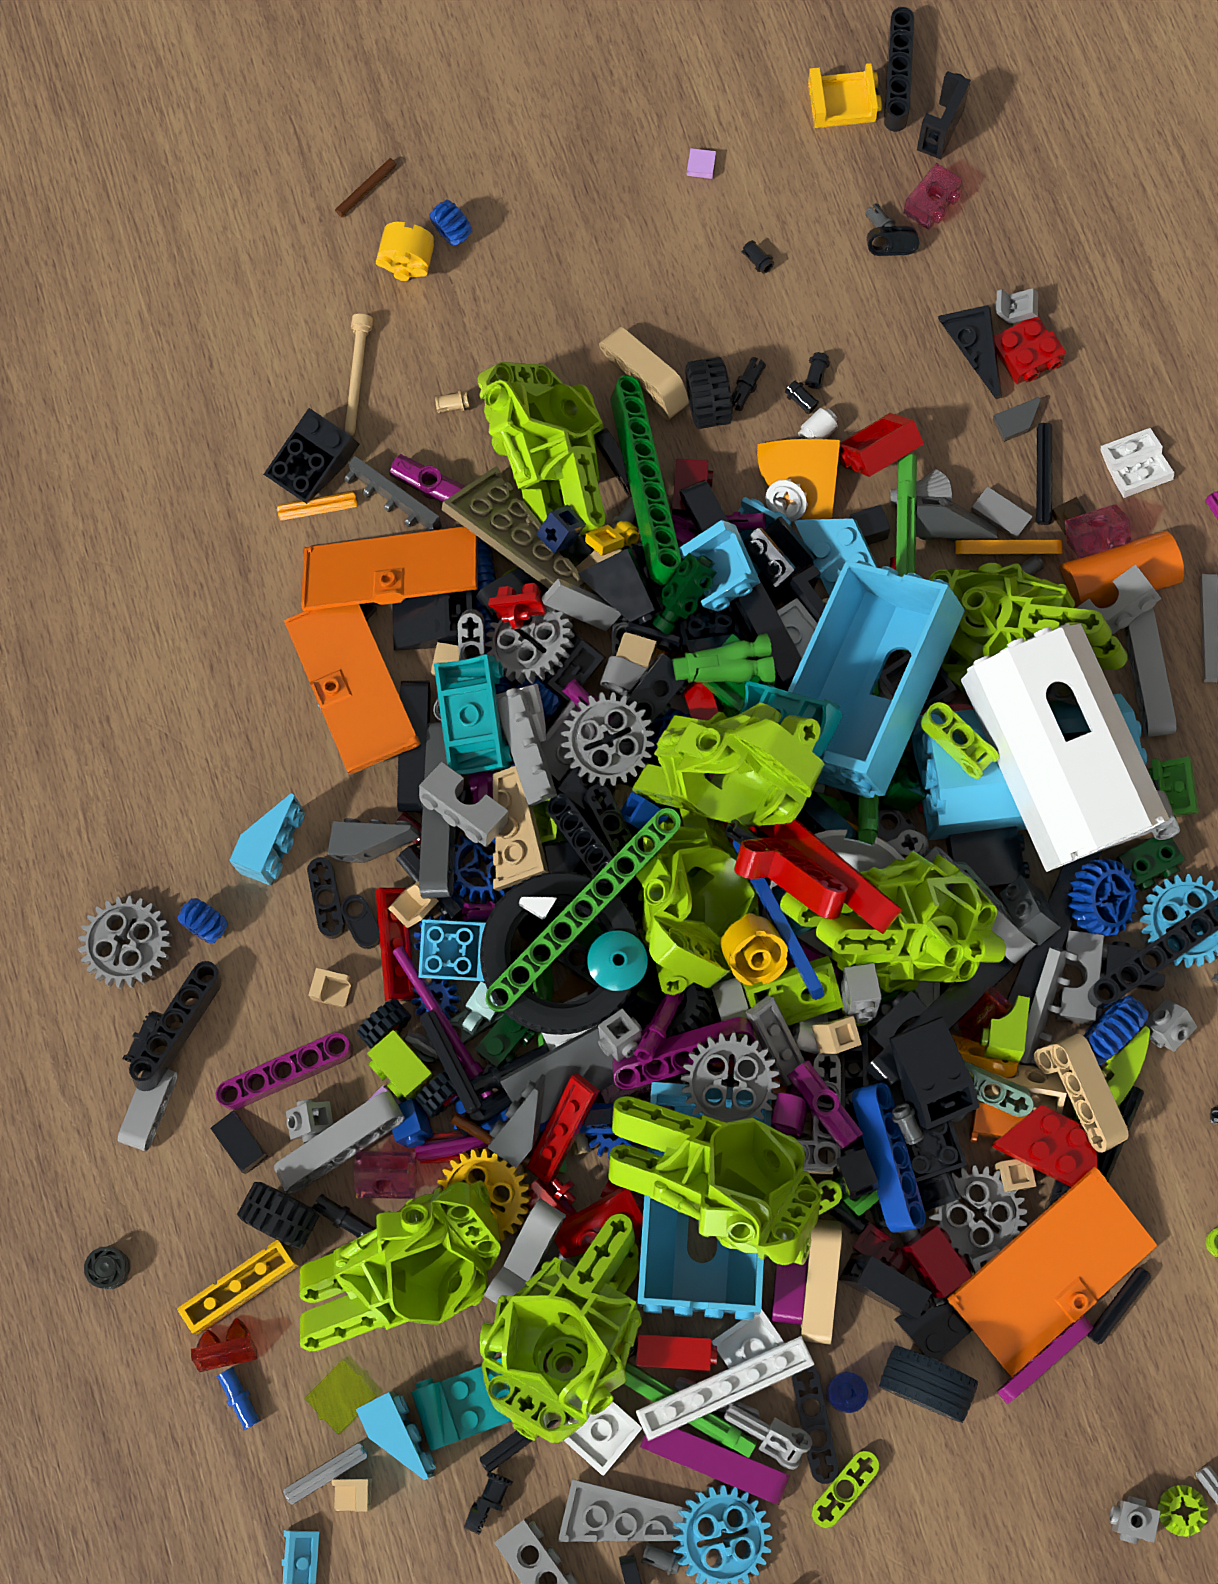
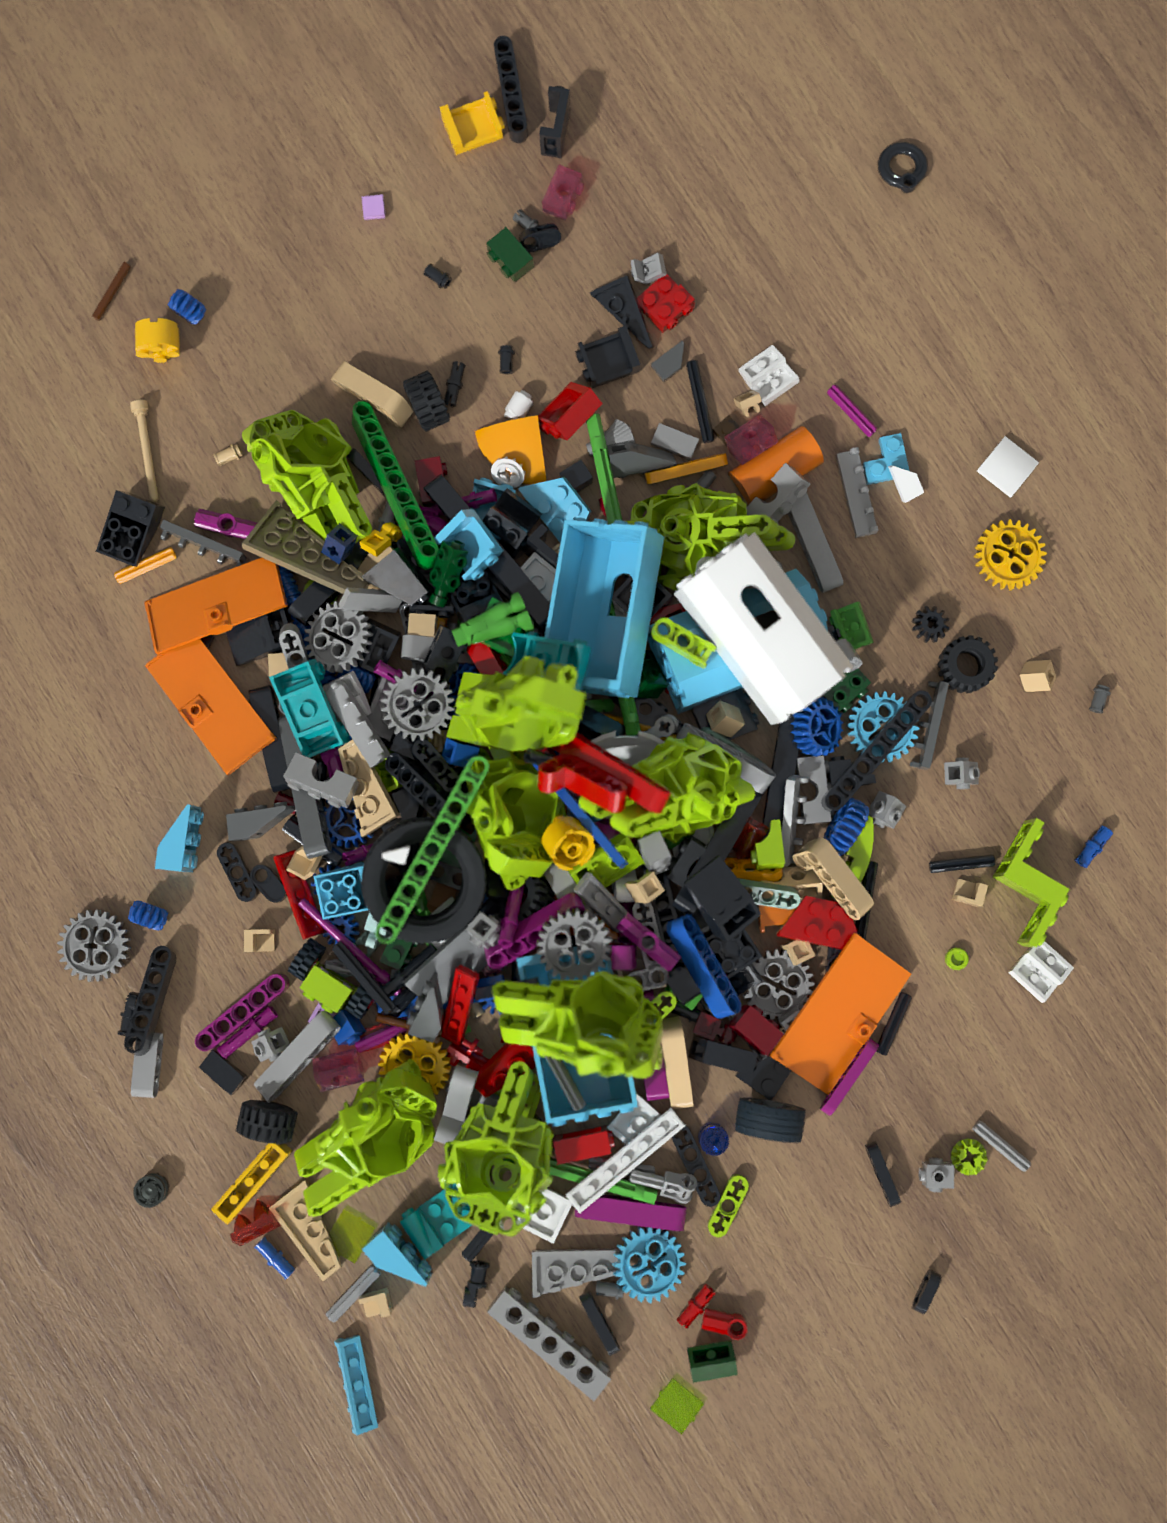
camera: 15 degrees left, 10 degrees up
(284, 1099) = (255, 1026): none -> magenta pin
(289, 1374) = (307, 1231): none -> tan wing
(342, 1216) = (315, 1107): black pin -> none
(517, 607) = (322, 616): red hips -> none
(601, 960) = (465, 866): teal dish -> none
(675, 1250) = (566, 1082): none -> dark grey axle
(801, 396) = (499, 384): black pin -> none
(851, 251) = (510, 255): none -> dark green brick
(909, 1127) = (708, 935): dark grey pin -> none
(943, 397) = (608, 358): none -> black panel
(988, 857) = (725, 719): none -> tan panel
(1030, 910) = (765, 751): dark grey brick -> none
(1061, 1501) = (882, 1174): none -> black beam
(1104, 485) = (747, 400): none -> tan tile

